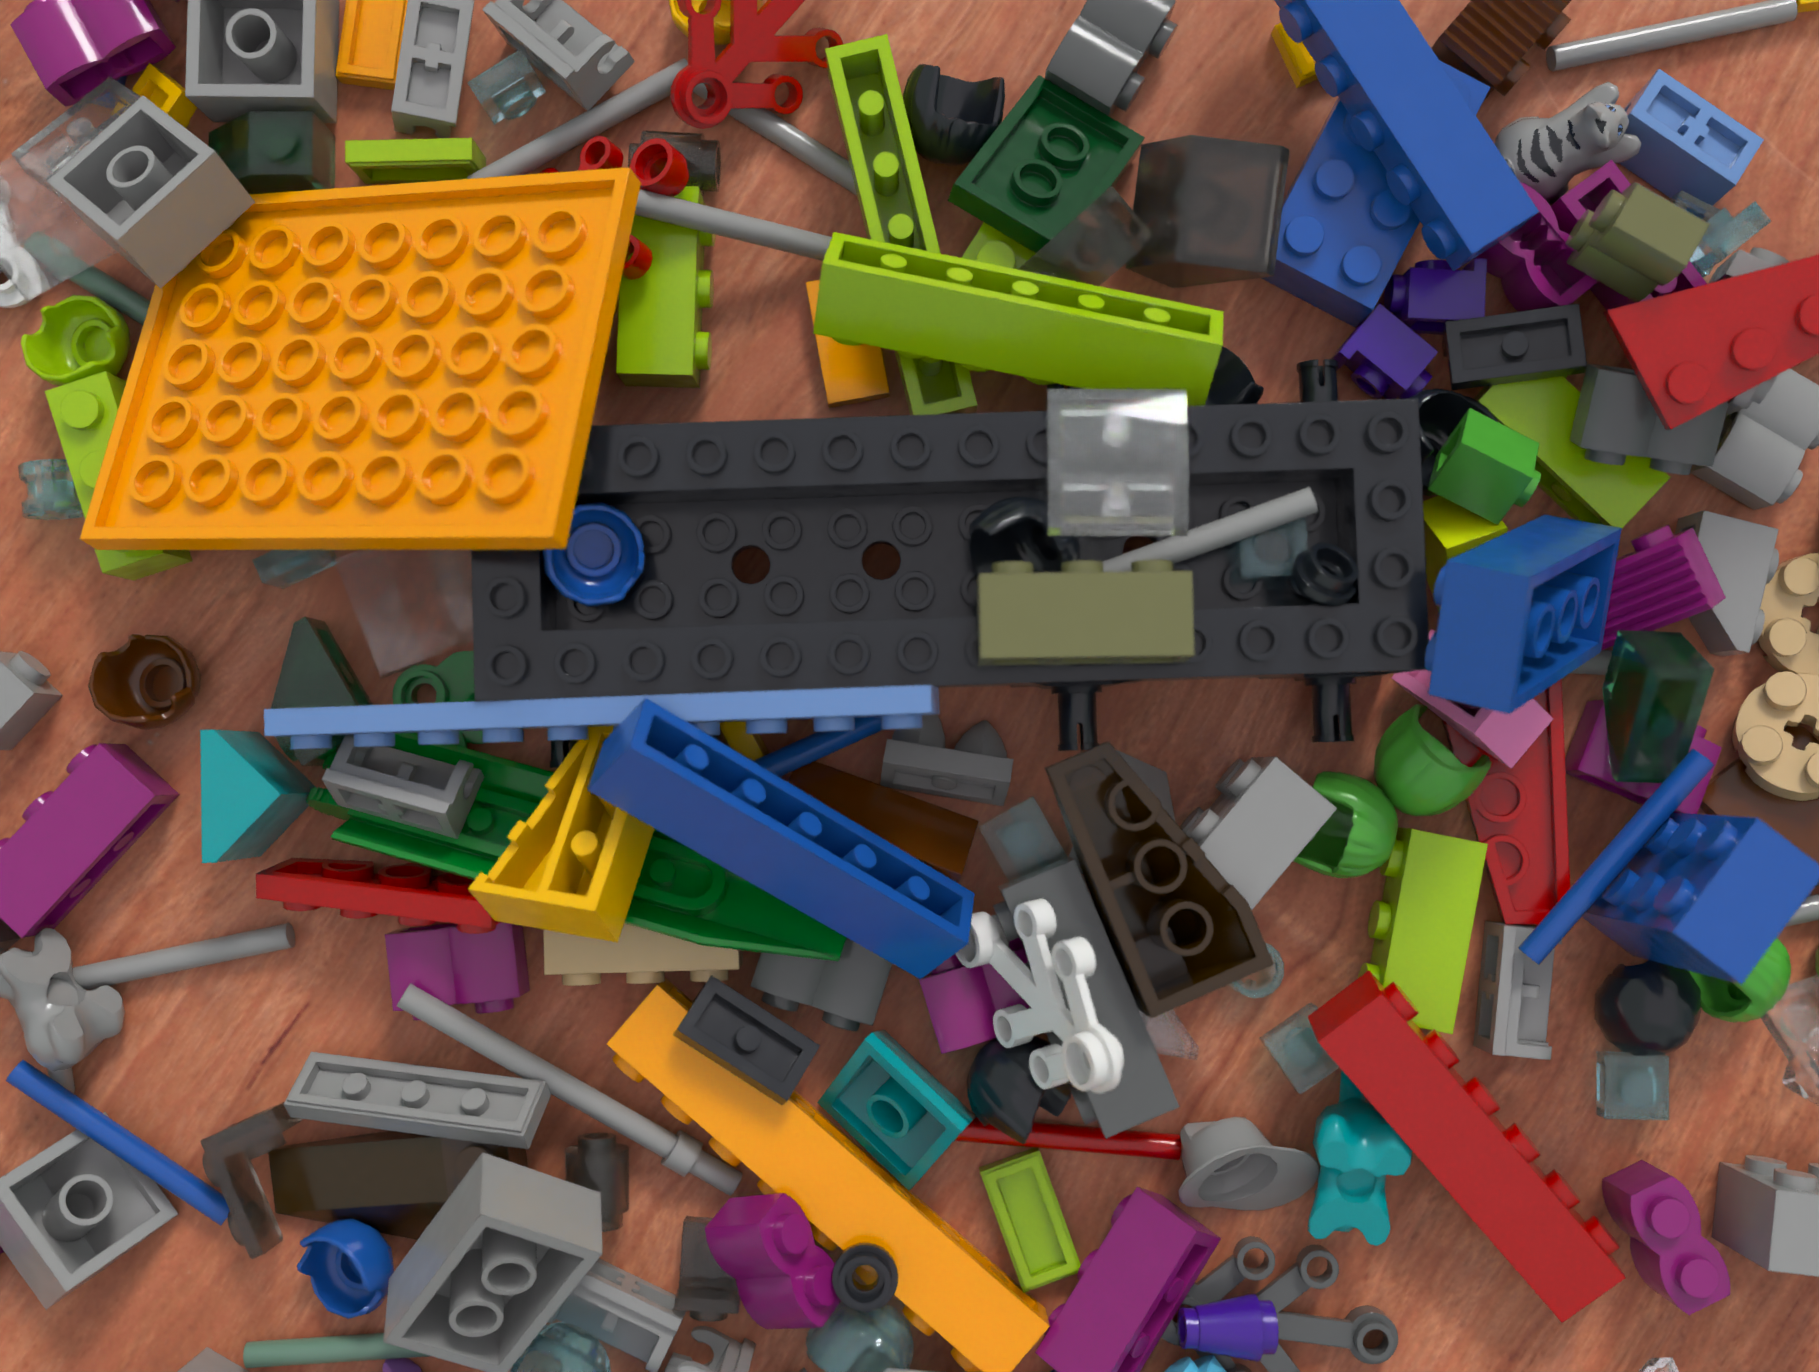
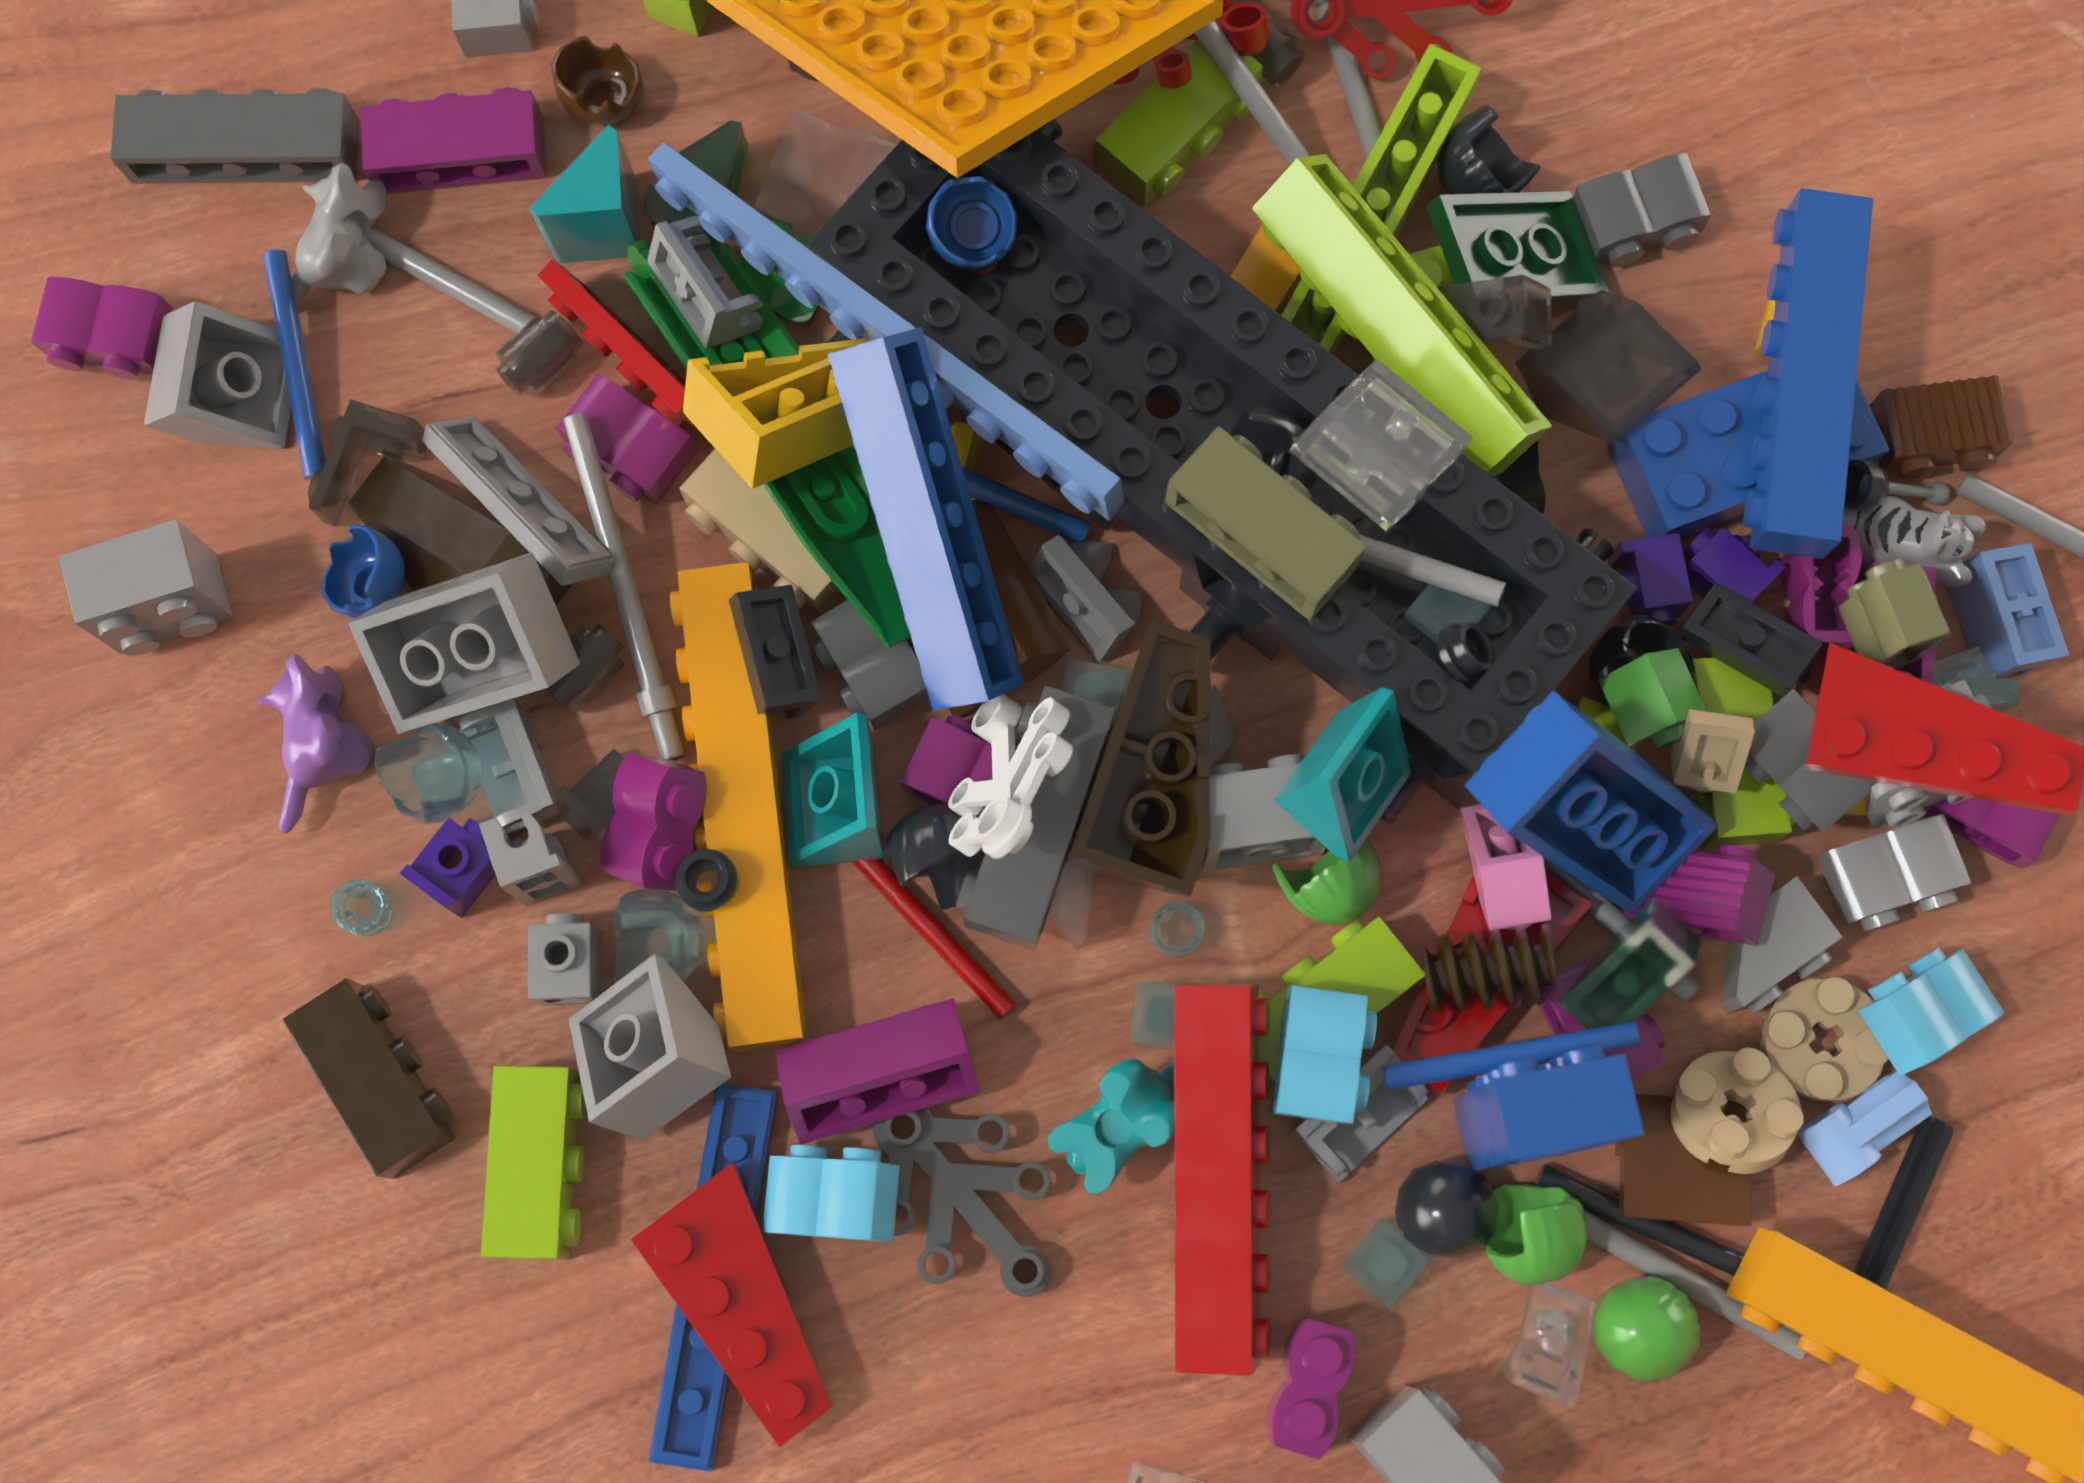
camera: 45 degrees right, 10 degrees down
(289, 567) = (767, 87): clear light blue plate -> none
(316, 957) = (538, 353): none -> clear smoke brick
(322, 1350) = (307, 635): sand green bar -> none
(1030, 1219) = (856, 966): lime tile -> none
(1231, 1327) = (929, 1155): dark purple cone -> none
(1239, 1169) = (1038, 1058): light grey piece -> none
(1309, 753) = (1350, 774): none -> teal slope
(1420, 771) = (1421, 884): bright green hair -> none
(1472, 989) = (1322, 1055): none -> medium azure brick
(1504, 124) = (1869, 484): none -> black hinge
(1540, 799) = (1490, 970): none -> dark brown piece
(1574, 476) = (1712, 751): none -> tan bracket

